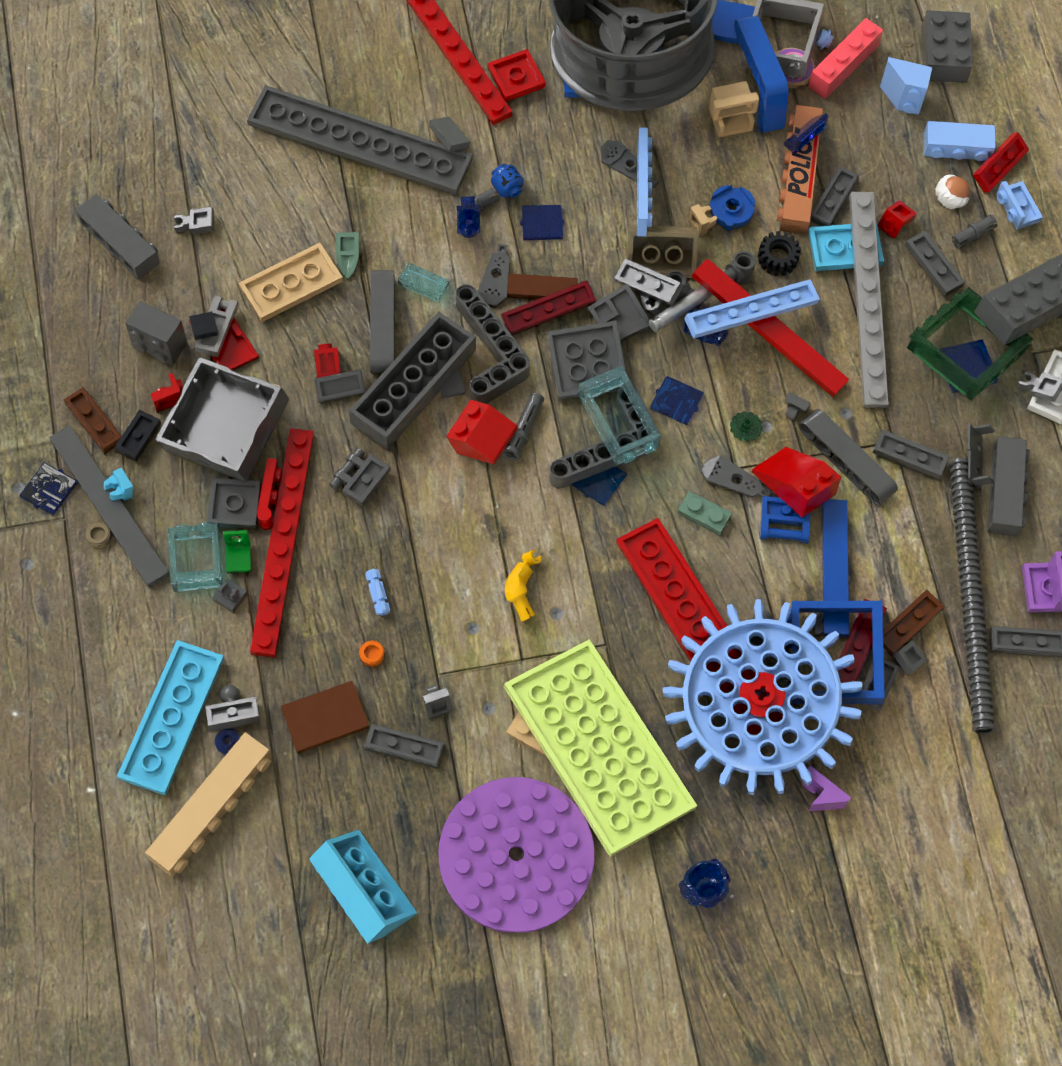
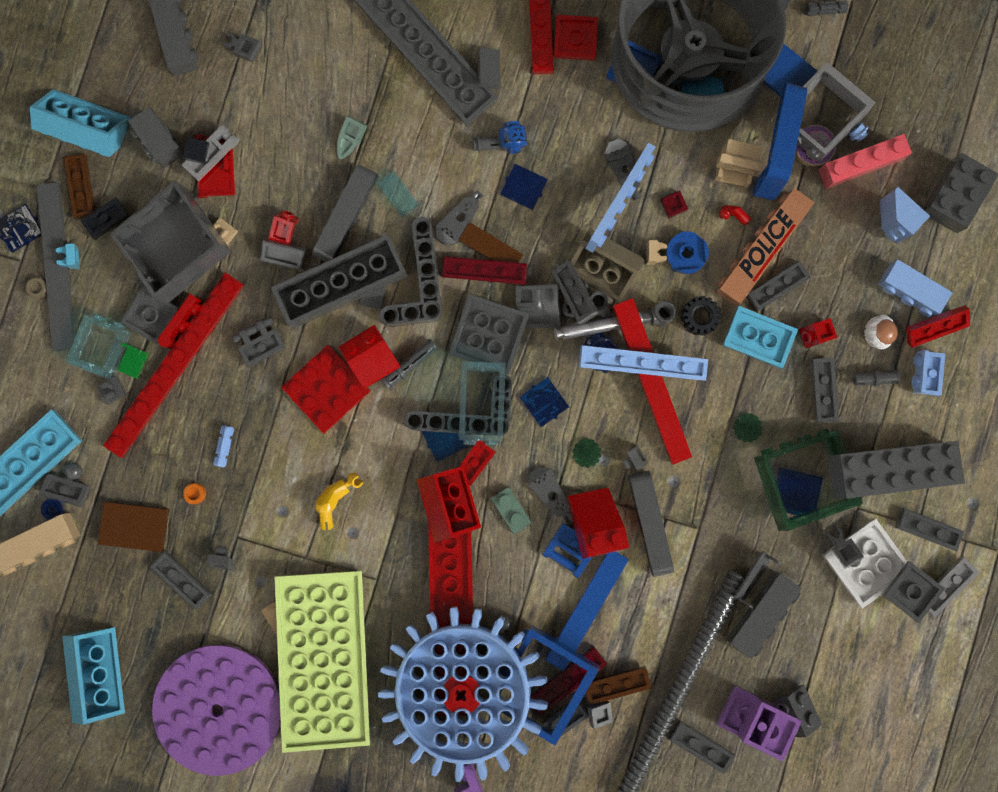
camera: 30 degrees right, 20 degrees up
(65, 360) = (79, 122): none -> medium azure slope
(167, 396) = (142, 195): red bracket -> none
(290, 282) = (290, 141): tan plate -> none
(452, 490) = (325, 389): none -> red plate
(468, 217) = (459, 158): clear blue hips -> none
(639, 527) = (448, 504): none -> red slope
(642, 484) = (477, 460): none -> red plate
(694, 173) = (674, 204): none -> dark red tile
(755, 151) = (735, 211): none -> red arm
(806, 133) = (785, 220): clear blue slope -> none
(868, 300) = (750, 394): light grey plate -> none
(891, 331) = (747, 427): none -> clear green piece
(910, 454) = (703, 547): dark grey plate -> none

